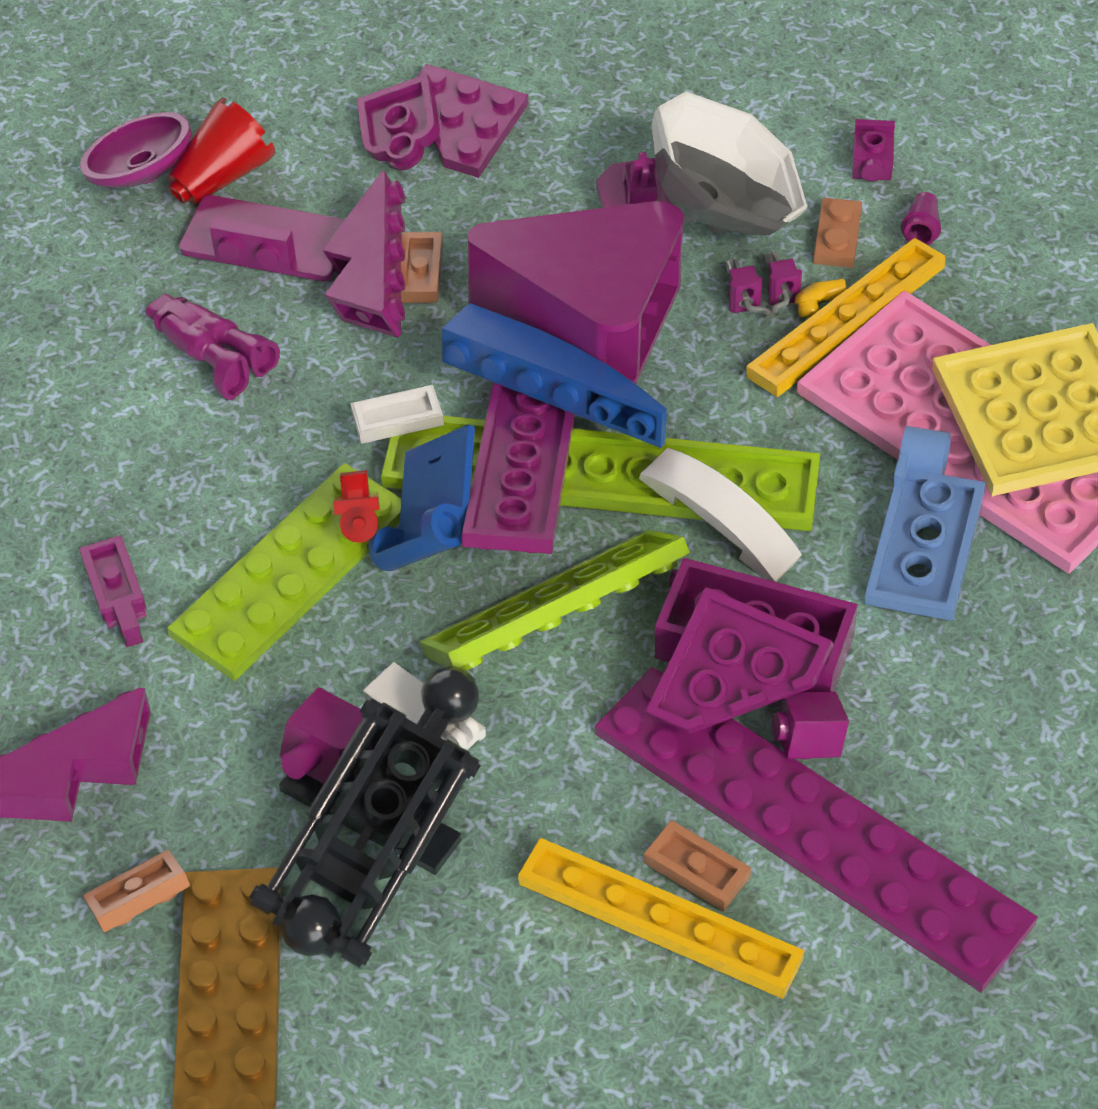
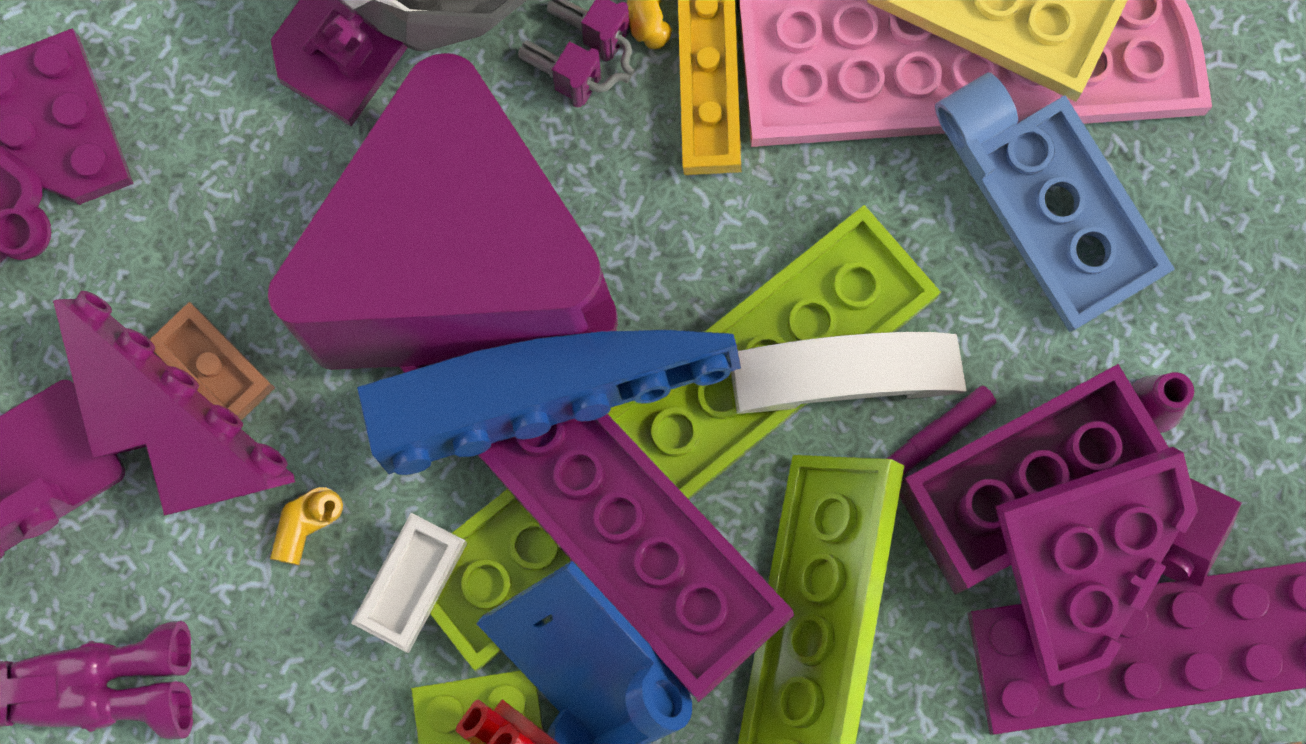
camera: 50 degrees left, 25 degrees up
(383, 360) = (301, 518): none -> yellow arm
(871, 662) = (1169, 409): none -> magenta cone

